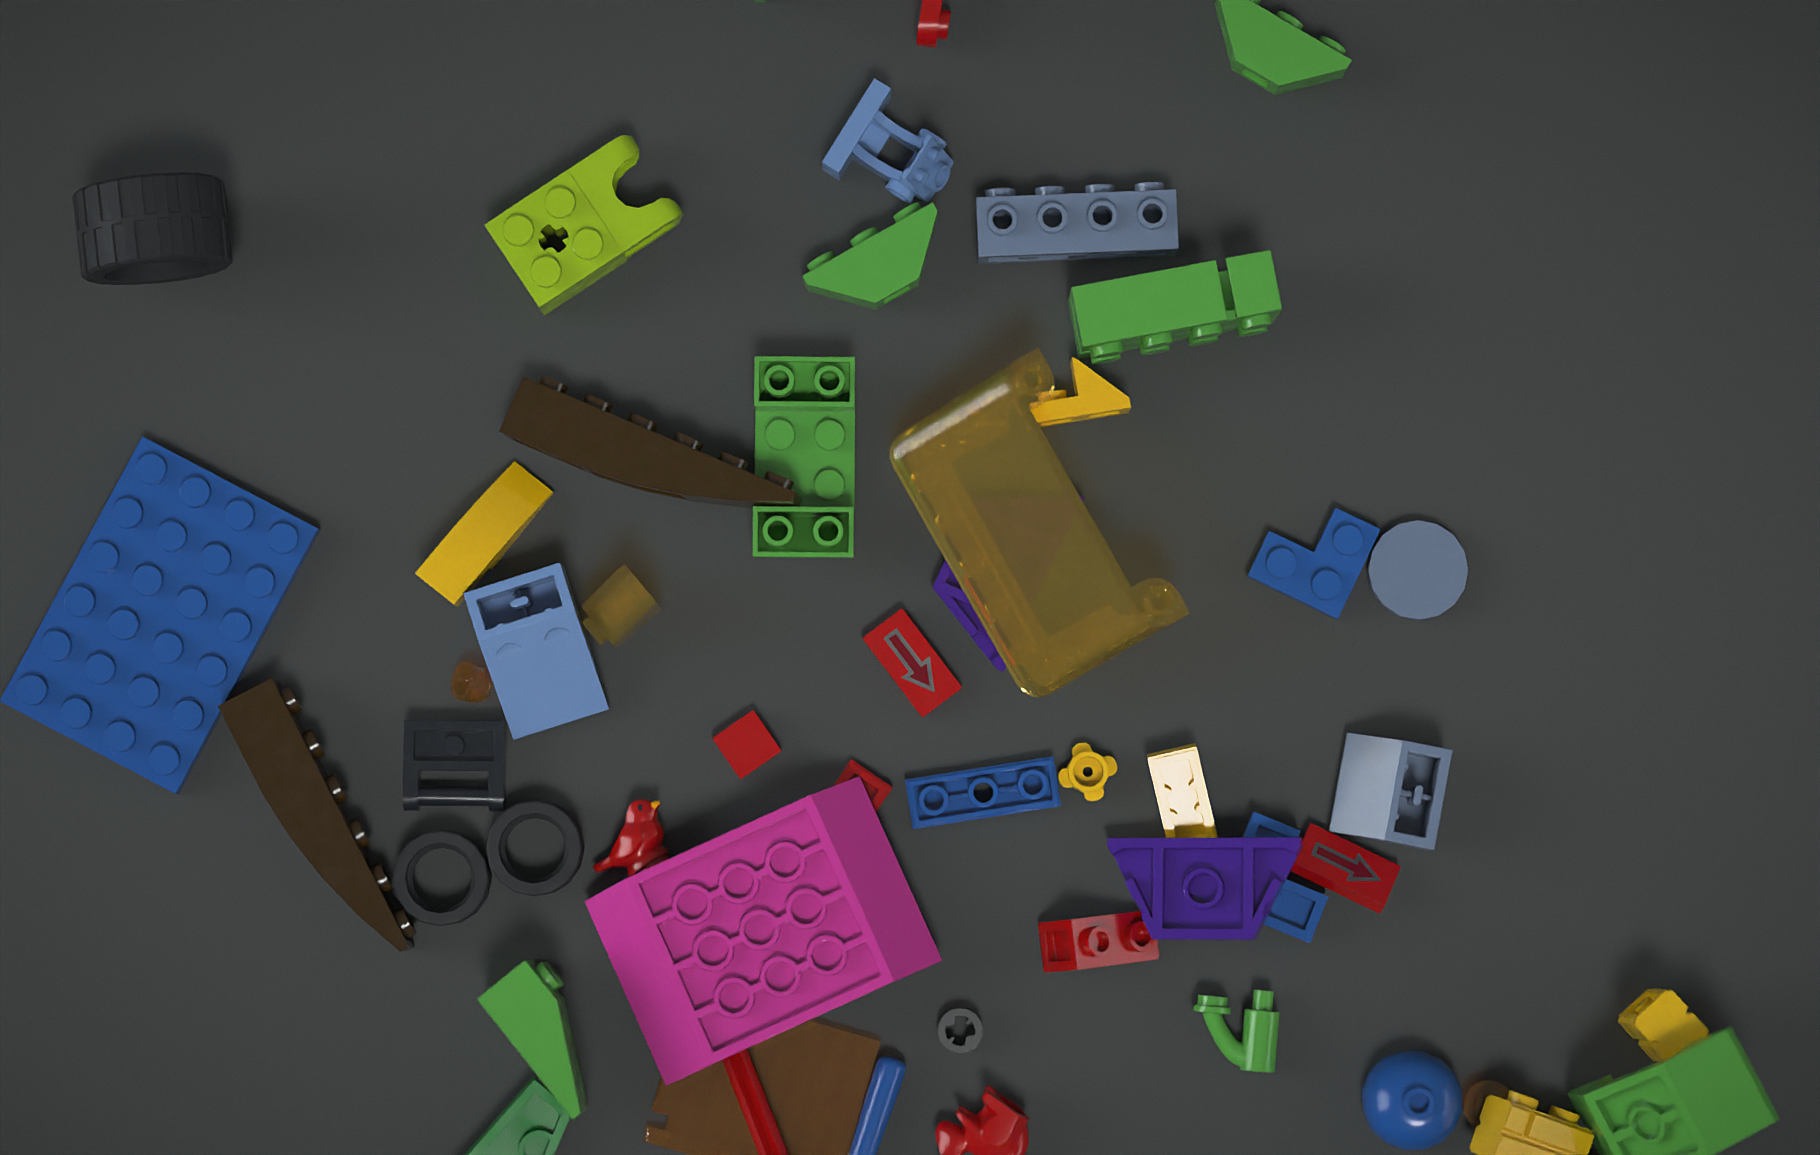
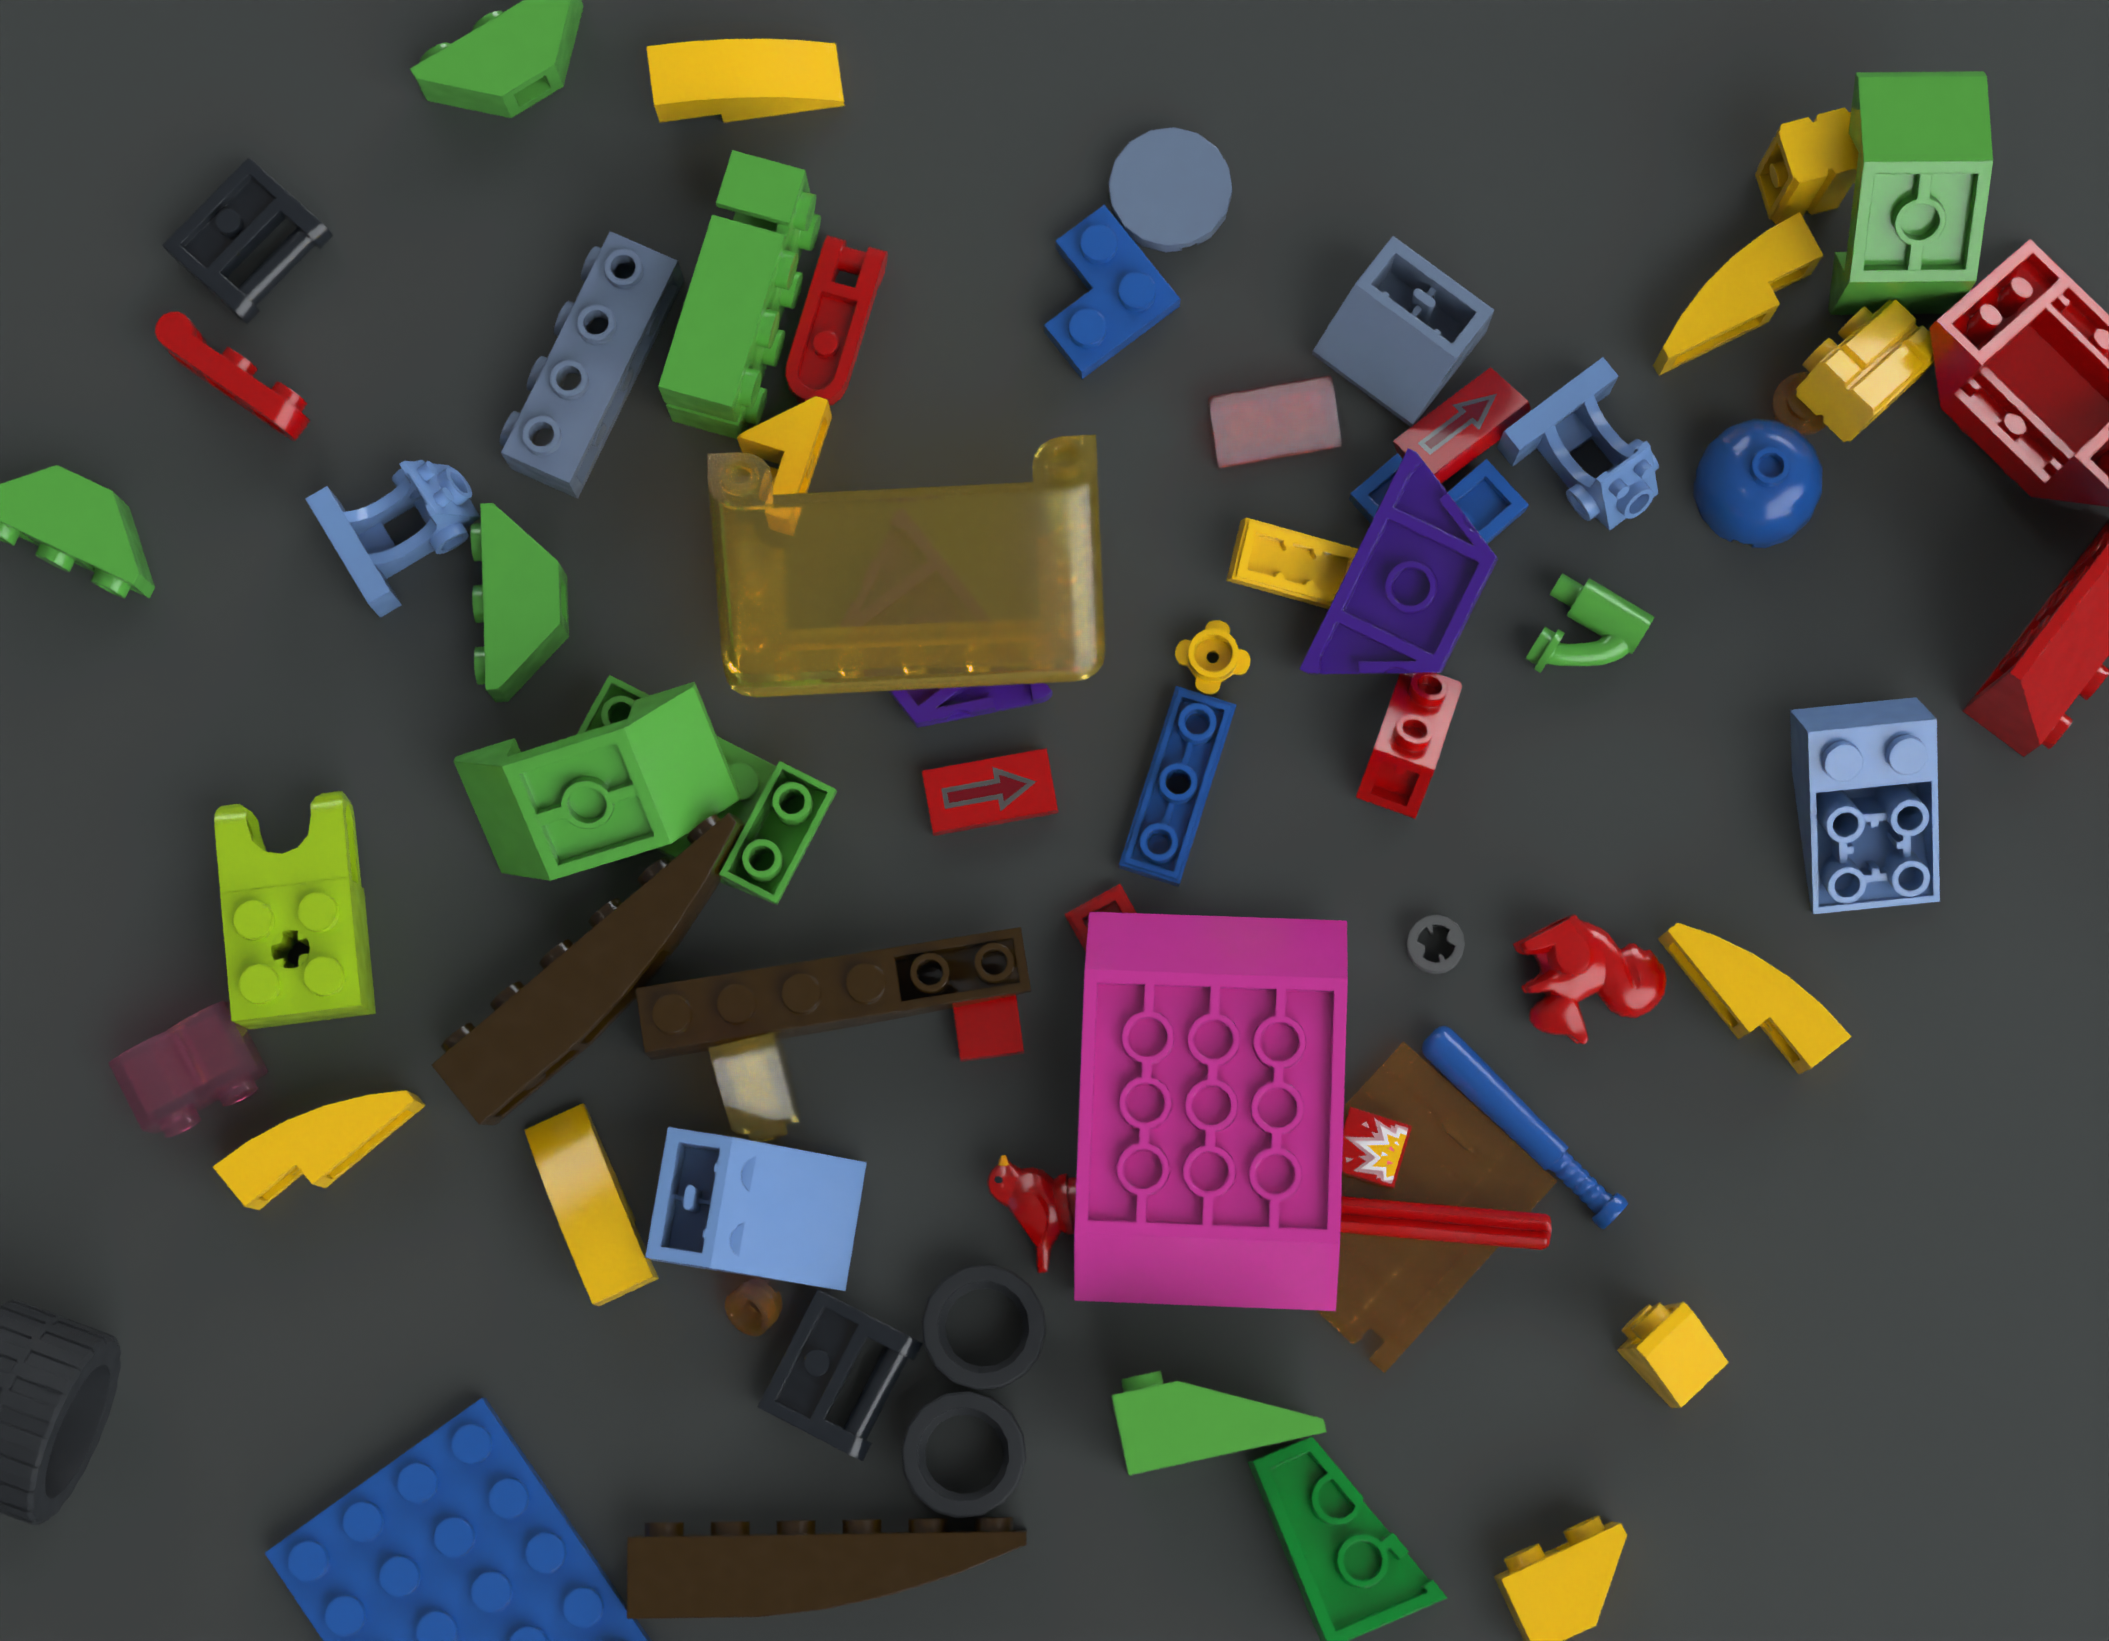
camera: 60 degrees left, 5 degrees down
(430, 323) = (314, 1144): none -> yellow slope
(440, 210) = (188, 1070): none -> clear pink brick
(713, 627) = (831, 992): none -> dark brown slope
(768, 398) = (600, 789): none -> bright green slope
(792, 1056) = (1373, 1147): none -> tile
(1194, 380) = (833, 321): none -> red plate
(1281, 731) = (1274, 421): none -> slope
(1342, 224) = (743, 78): none -> yellow slope
(1385, 940) = (1568, 422): none -> medium blue tile
(1545, 1020) = (1742, 292): none -> yellow slope

